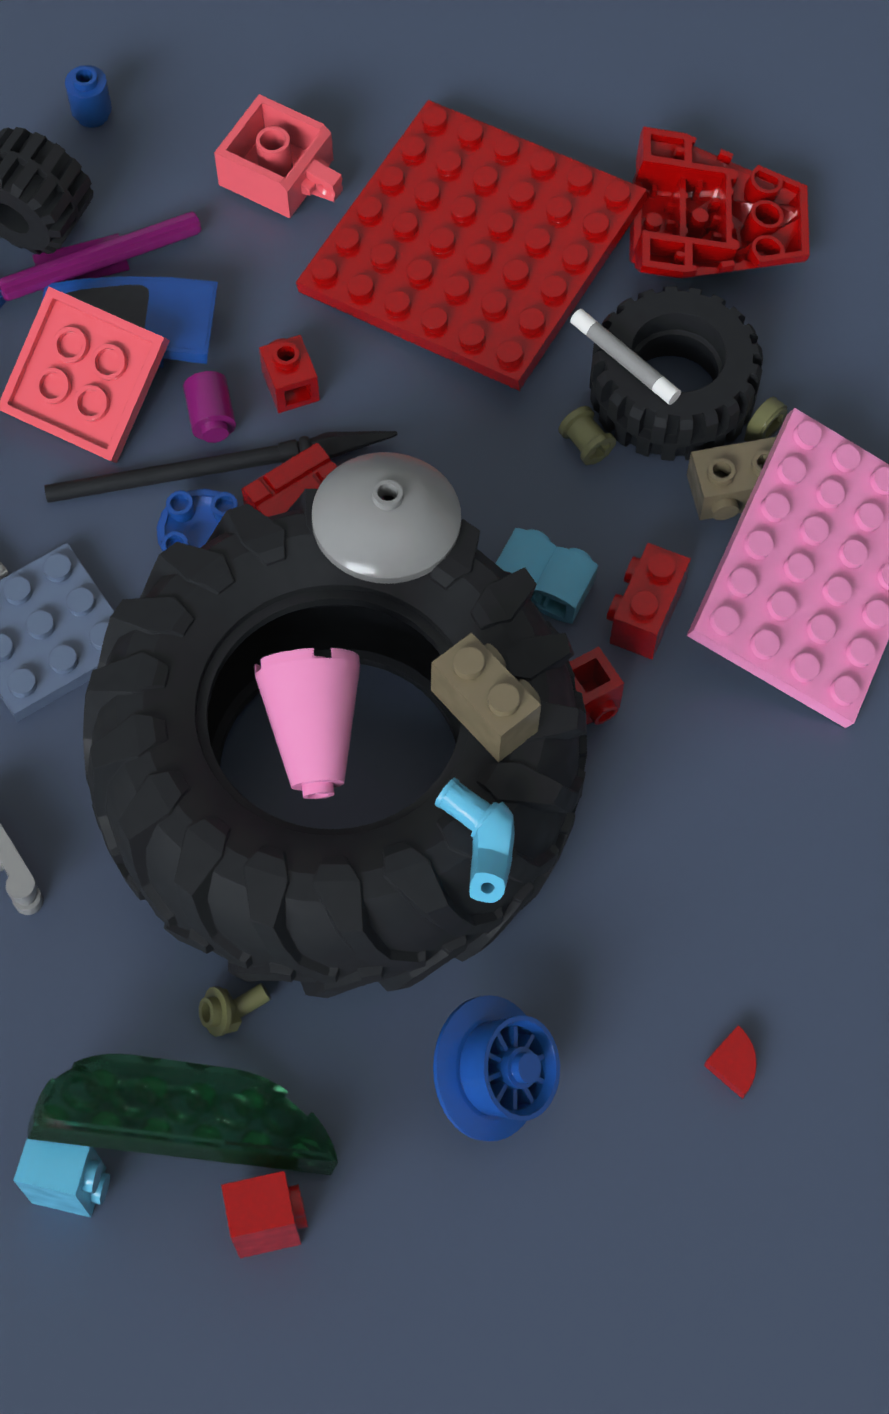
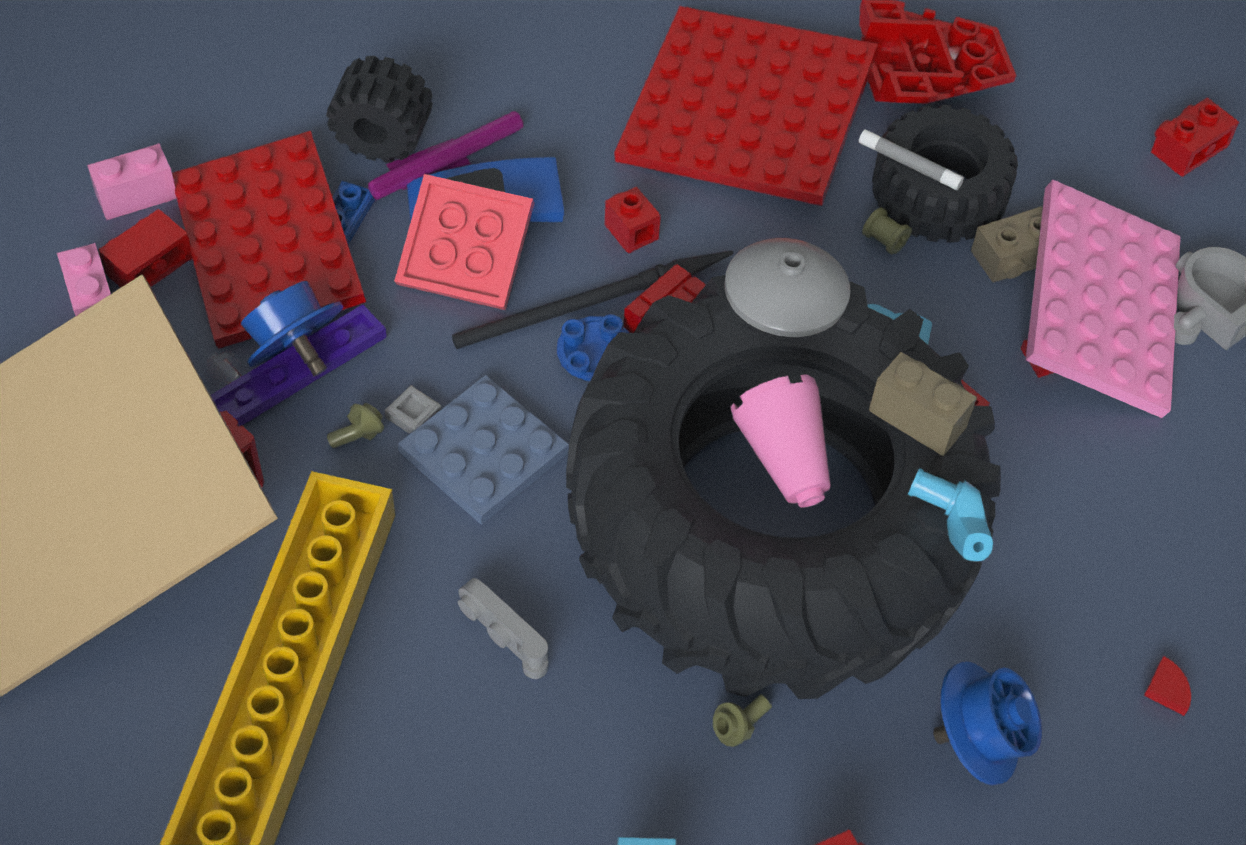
camera: 15 degrees left, 10 degrees down
(88, 95) = (403, 37): blue brick -> none
(180, 1112) = (737, 805): clear green plate -> none
(209, 406) = (573, 253): magenta brick -> none
(278, 158) = (574, 62): coral hinge -> none
(649, 600) = (981, 341): red brick -> none
(766, 420) = (1023, 198): olive tile -> none

